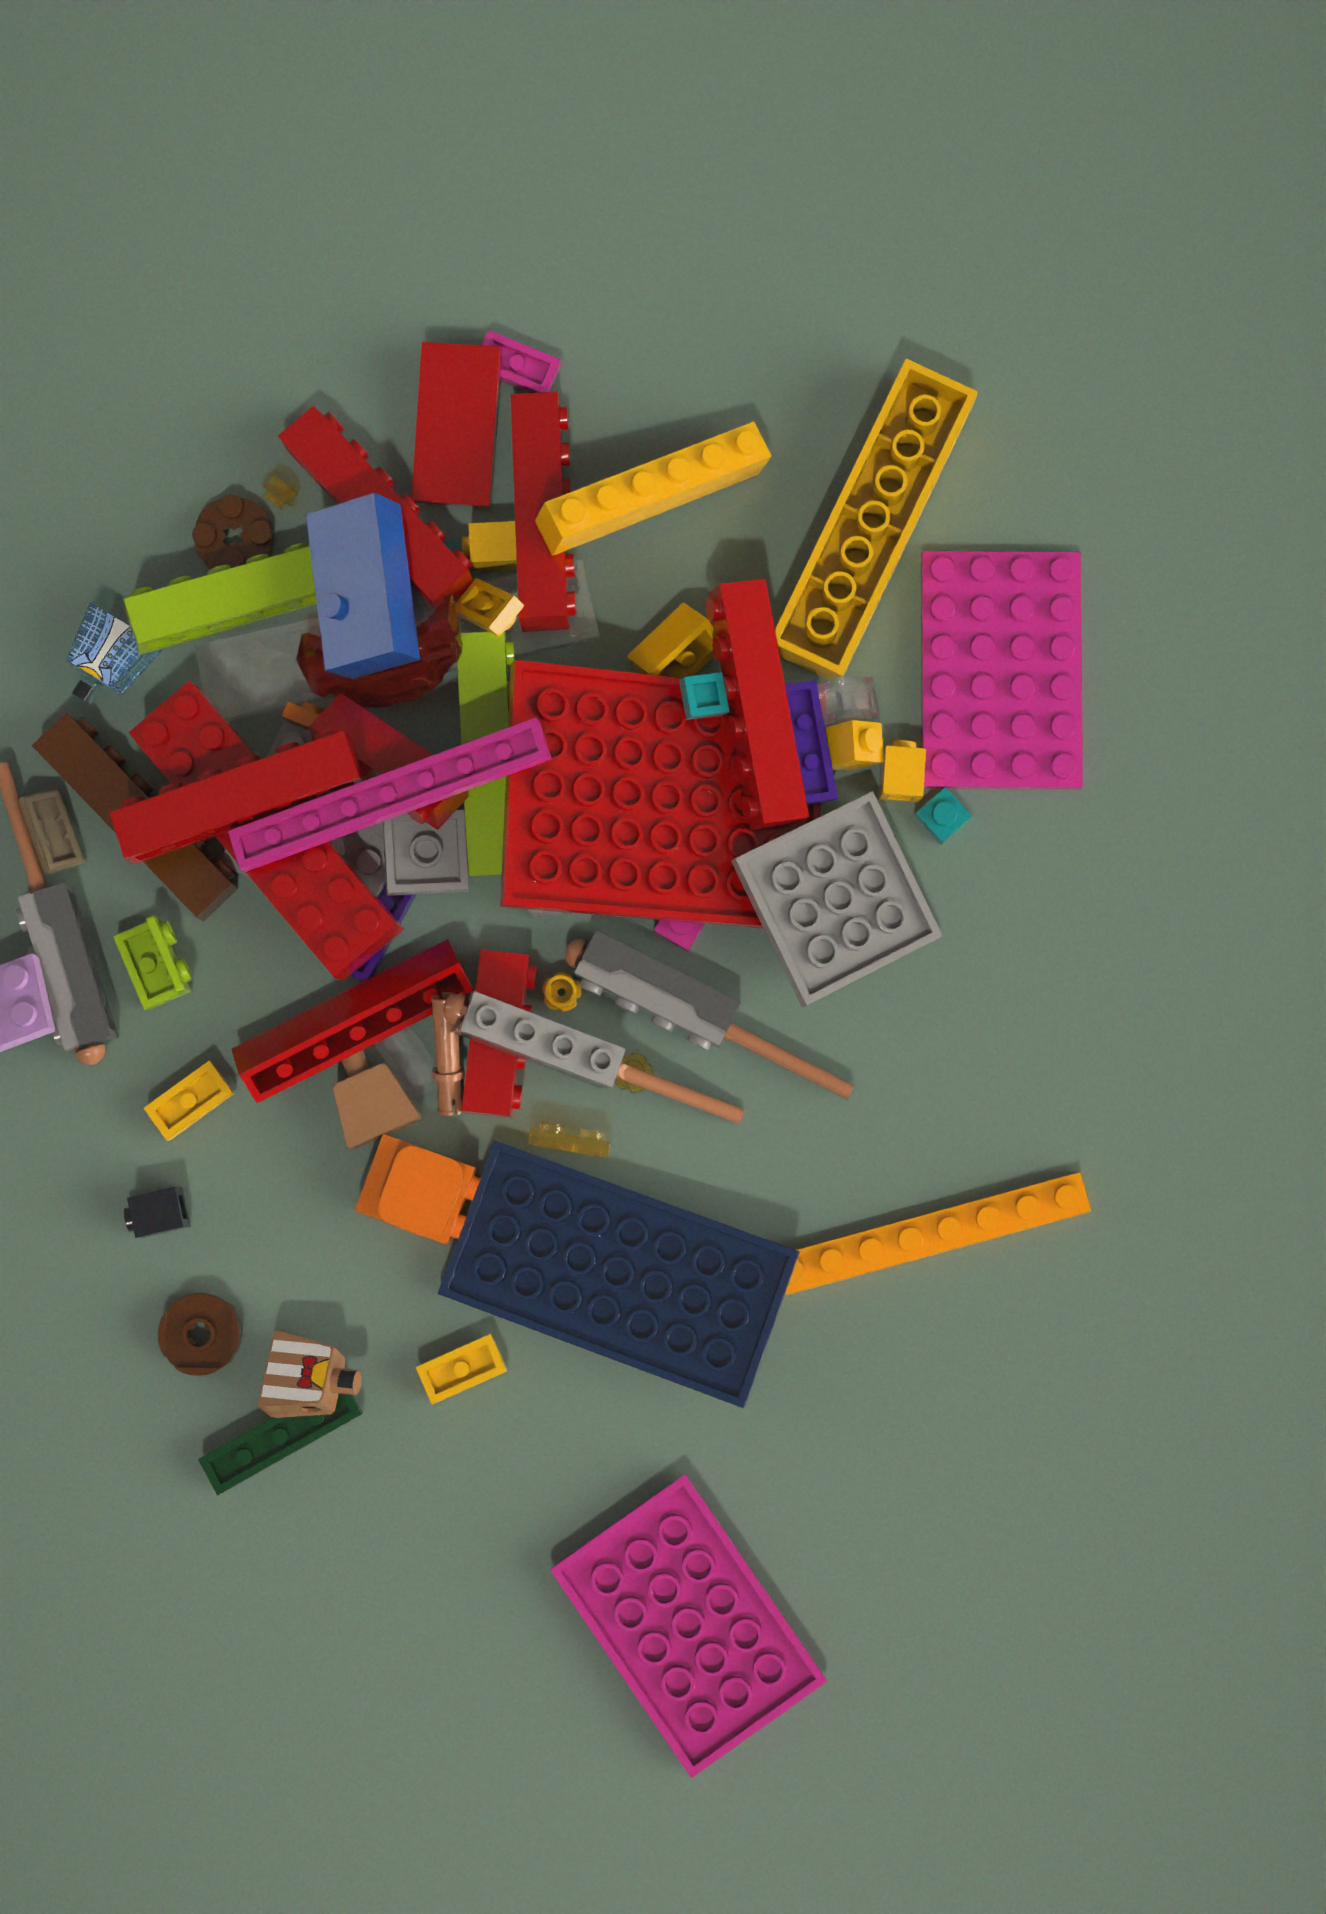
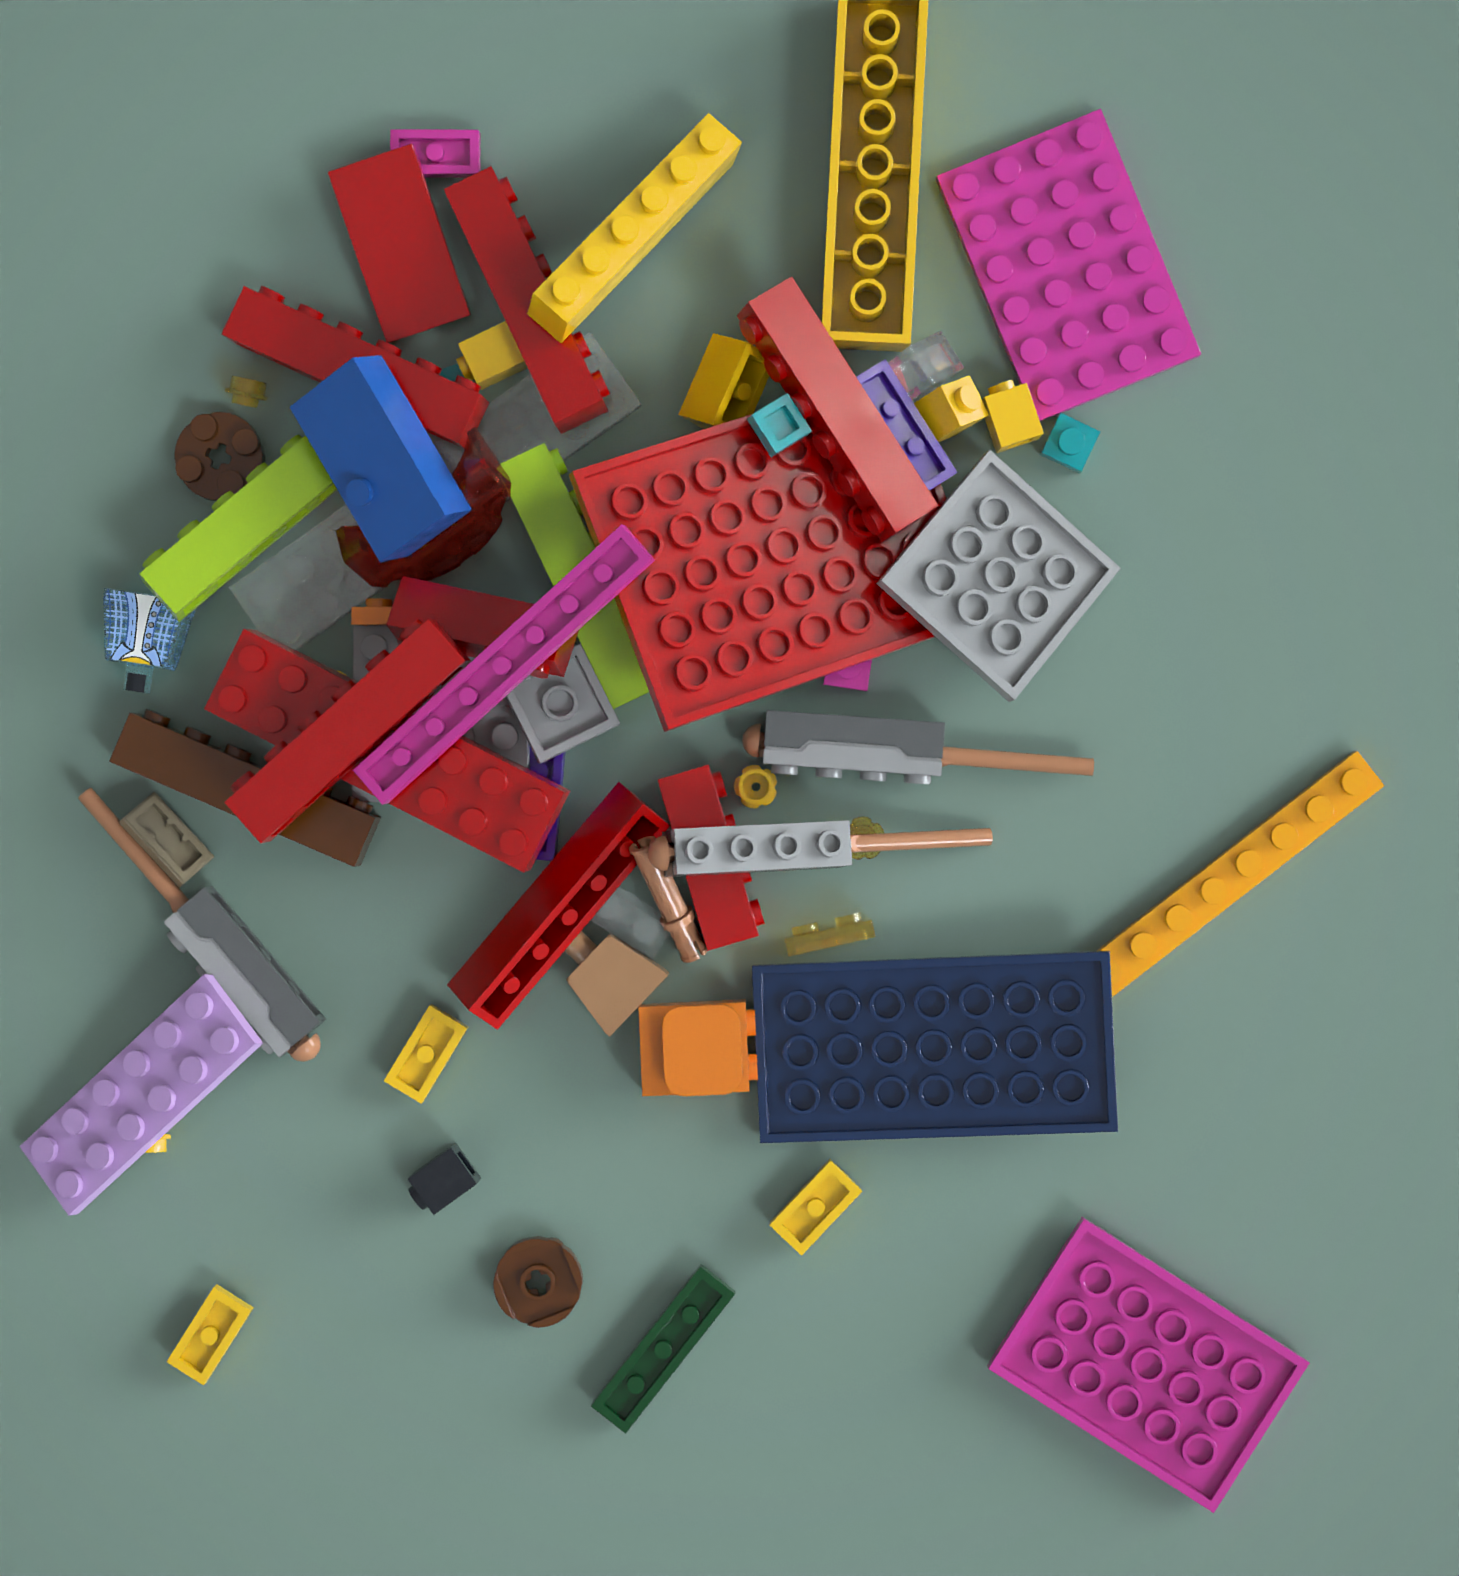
camera: 25 degrees left, 5 degrees up
(153, 963) = (329, 929): lime bracket -> none
(304, 1378) = (664, 1282): torso -> none
(488, 607) = (517, 424): yellow plate -> none

